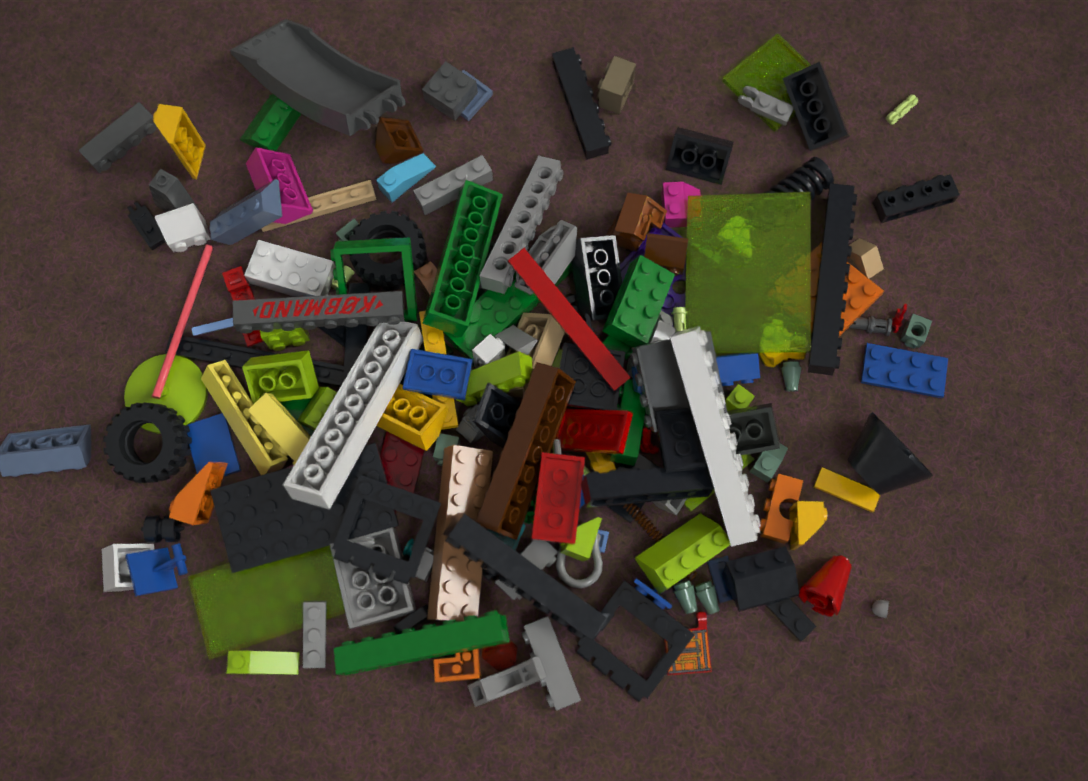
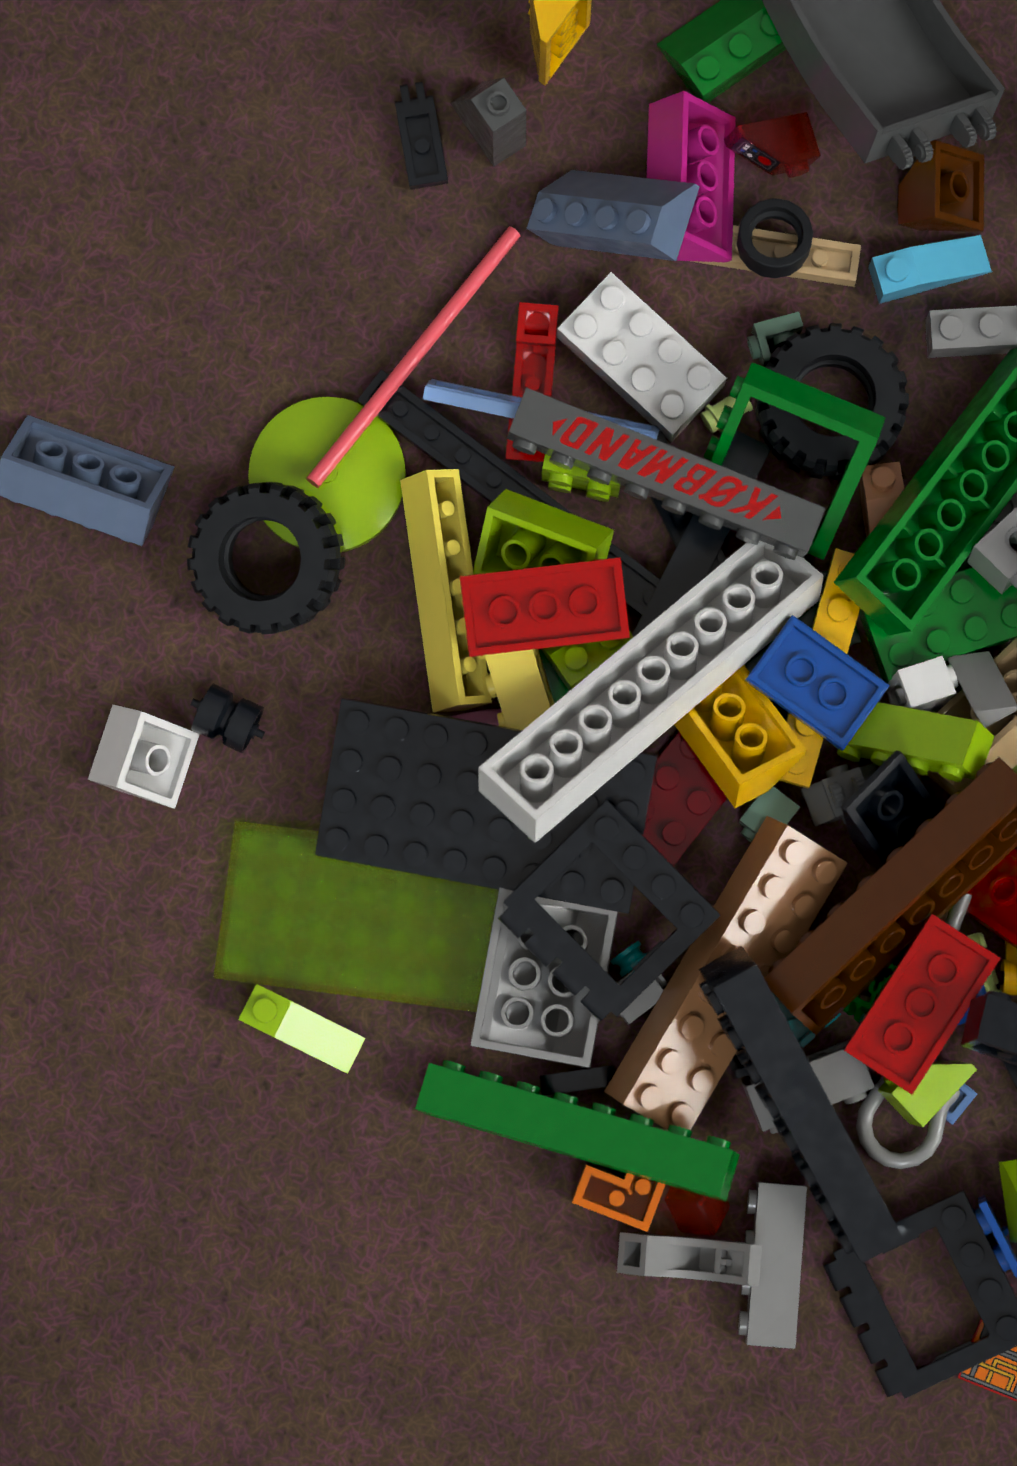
camera: 25 degrees right, 10 degrees up
(153, 569) = (184, 785): blue plate -> none
(183, 228) = (486, 183): white slope -> none
(195, 501) = (302, 705): orange slope -> none
(213, 443) = (368, 615): blue tile -> none
(287, 398) = (544, 607): none -> red plate
(311, 154) = (777, 144): none -> clear red slope
(314, 634) = (406, 1023): light grey plate -> none
(322, 181) = (779, 210): none -> black tyre

